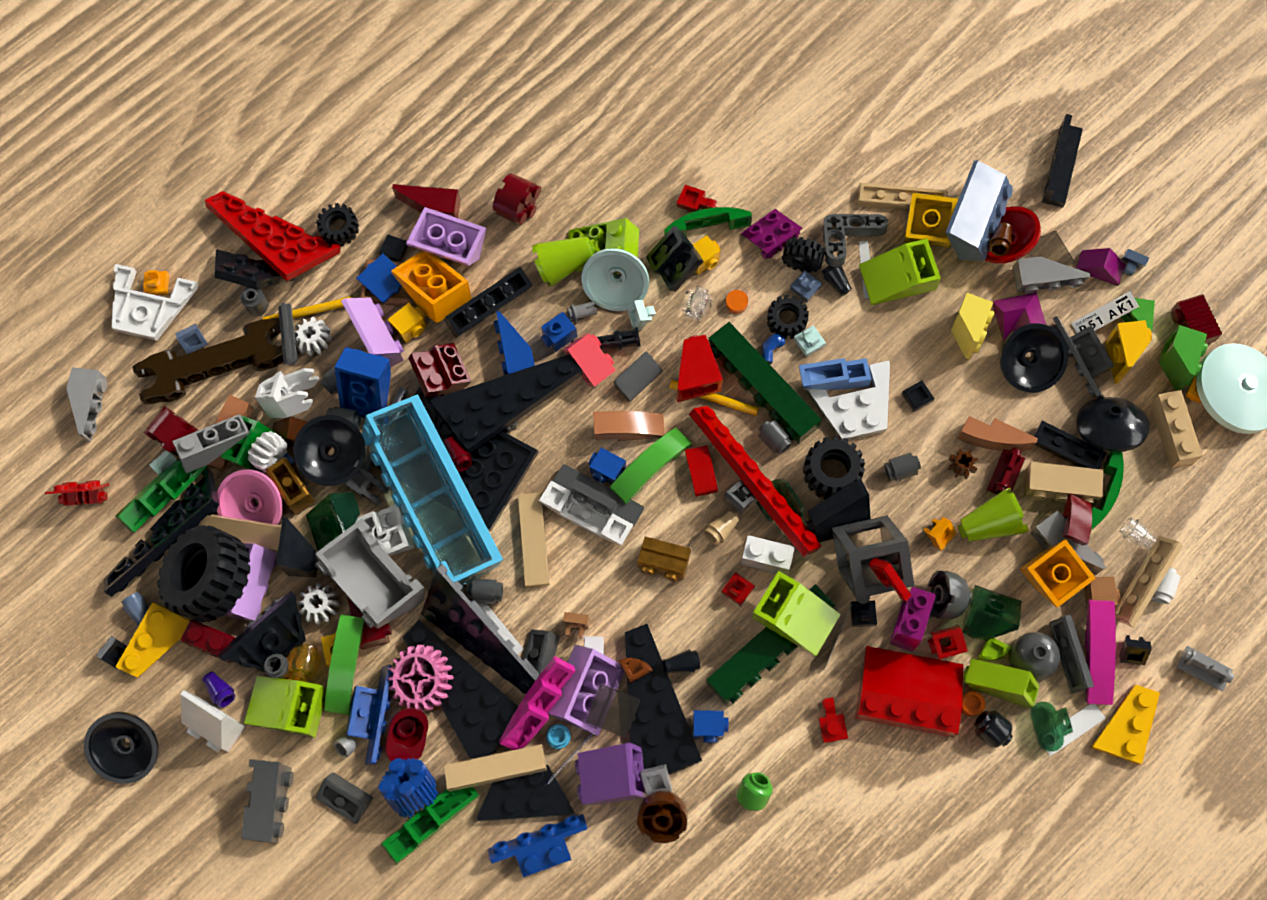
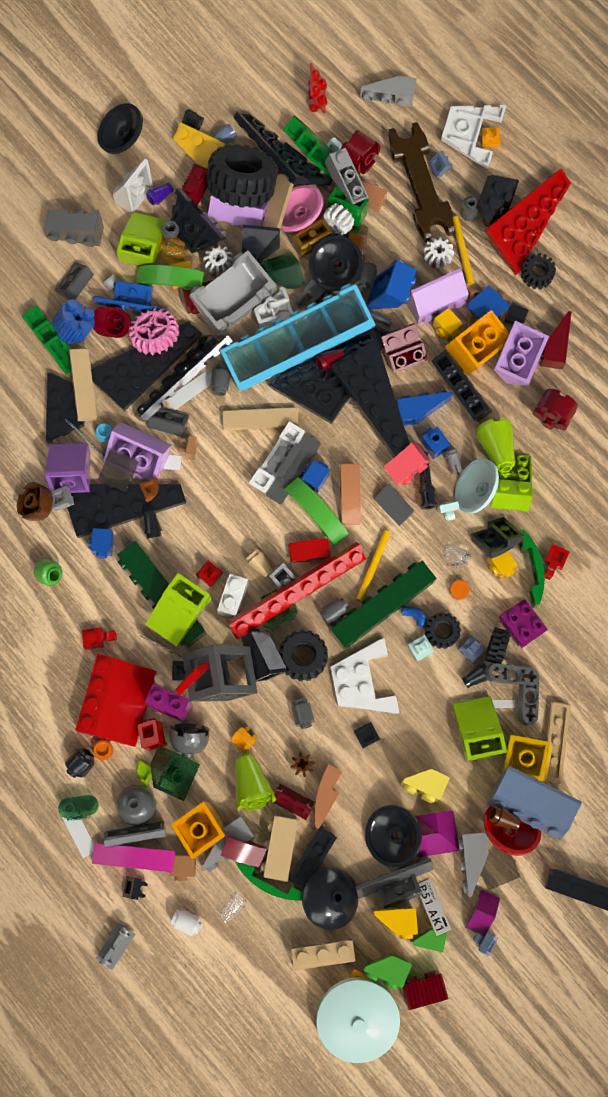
camera: 85 degrees right, 5 degrees up
(285, 395) = (389, 227): white piece -> none
(287, 334) = (438, 232): dark grey axle -> none
(536, 704) = (126, 414): dark pink slope -> none
(540, 848) = (24, 417): blue bracket -> none
(663, 559) = (236, 516): pearl gold brick -> none
(698, 370) = (395, 550): red slope -> none
(835, 374) = (386, 664): medium blue slope -> none
(1002, 682) = (114, 774): lime slope -> none
(1130, 726) = (74, 876): yellow wing -> none
(1147, 580) = (189, 906): tan tile -> none

